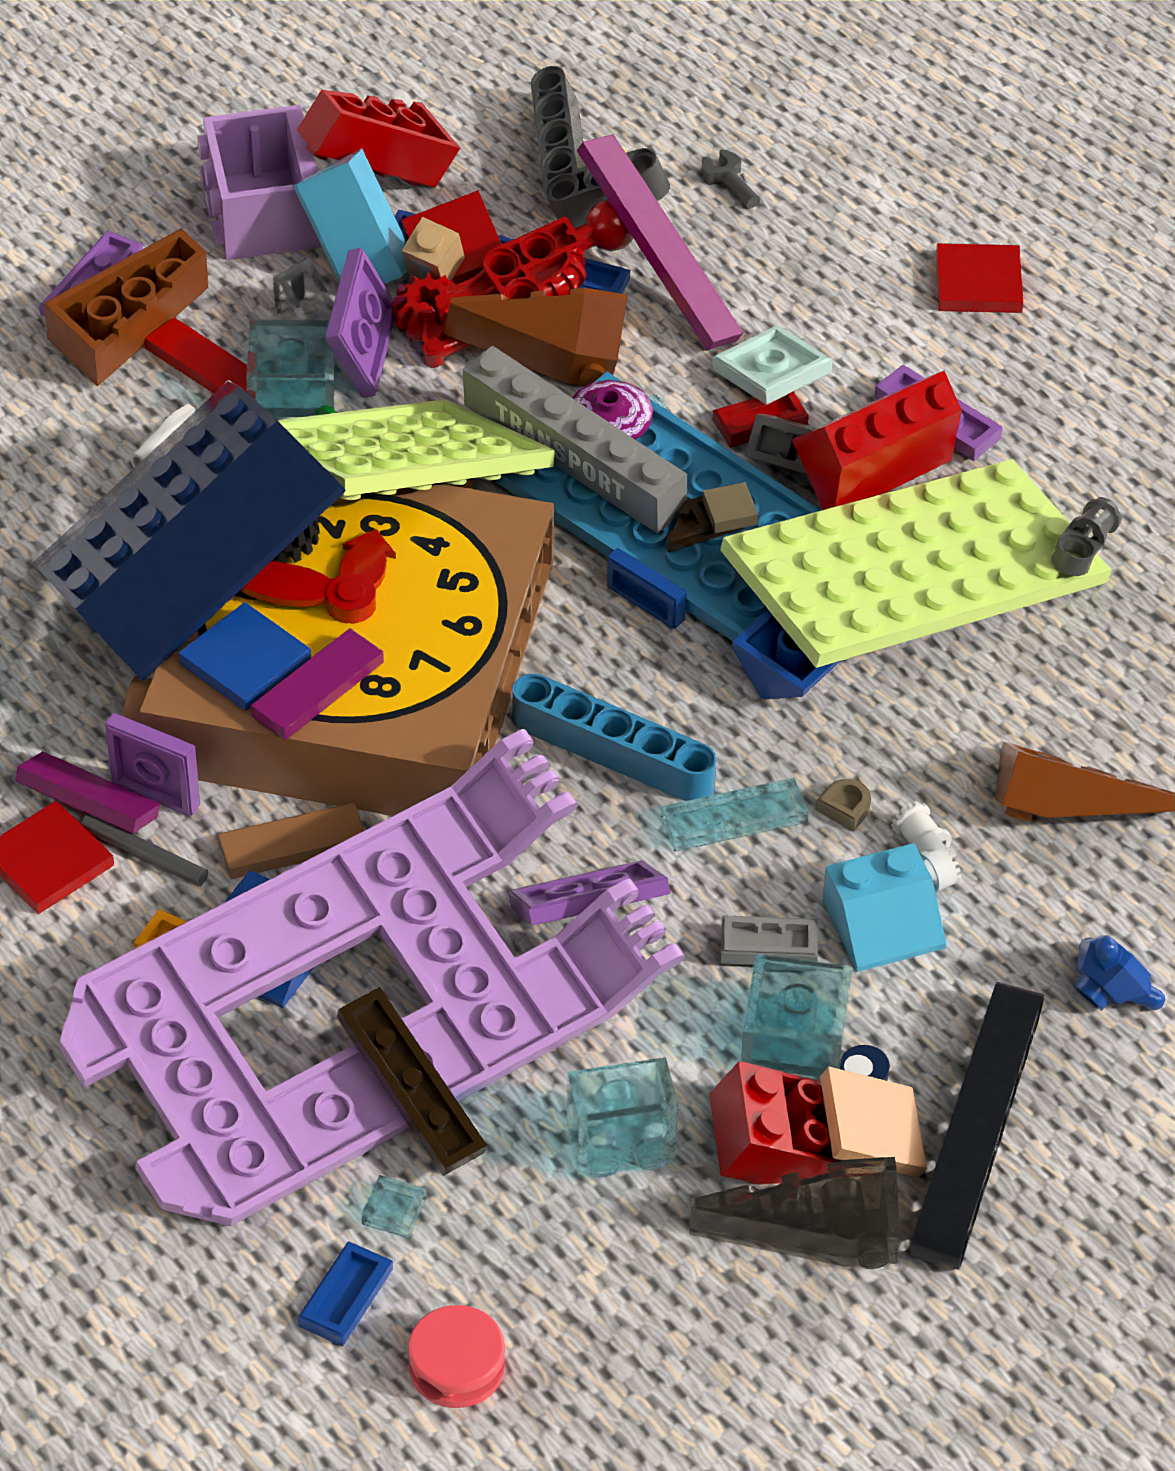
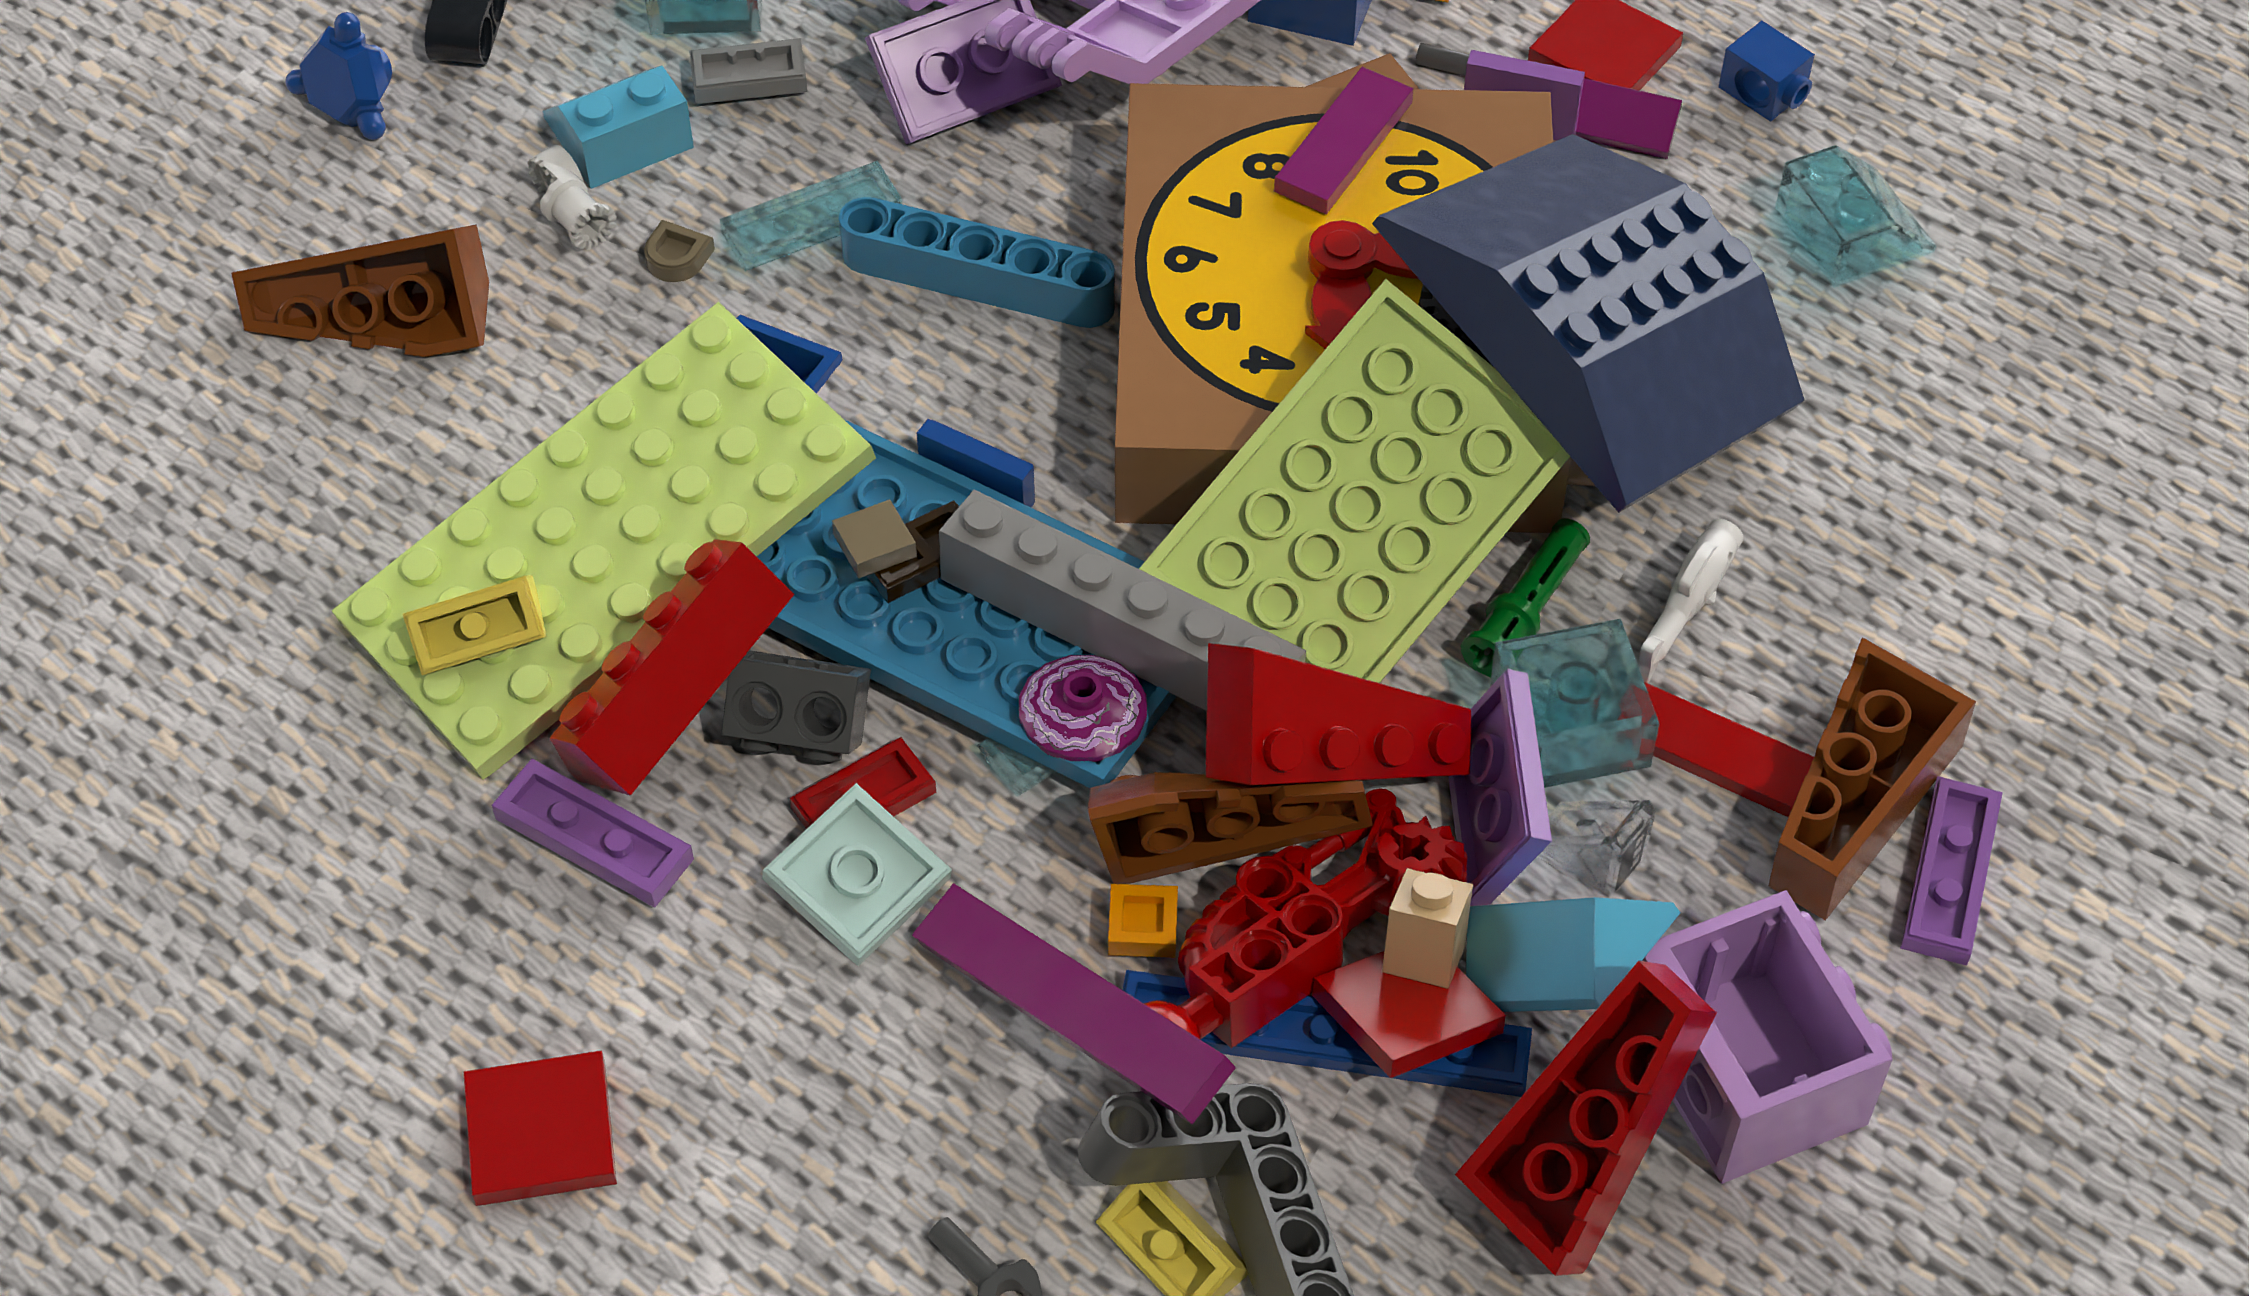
camera: 170 degrees right, 5 degrees up
(244, 655) = (1440, 147): blue tile -> none
(456, 331) = (1313, 724): none -> red wedge
(1009, 514) = (475, 624): none -> light yellow slope
(1076, 538) = (361, 601): dark grey connector -> none

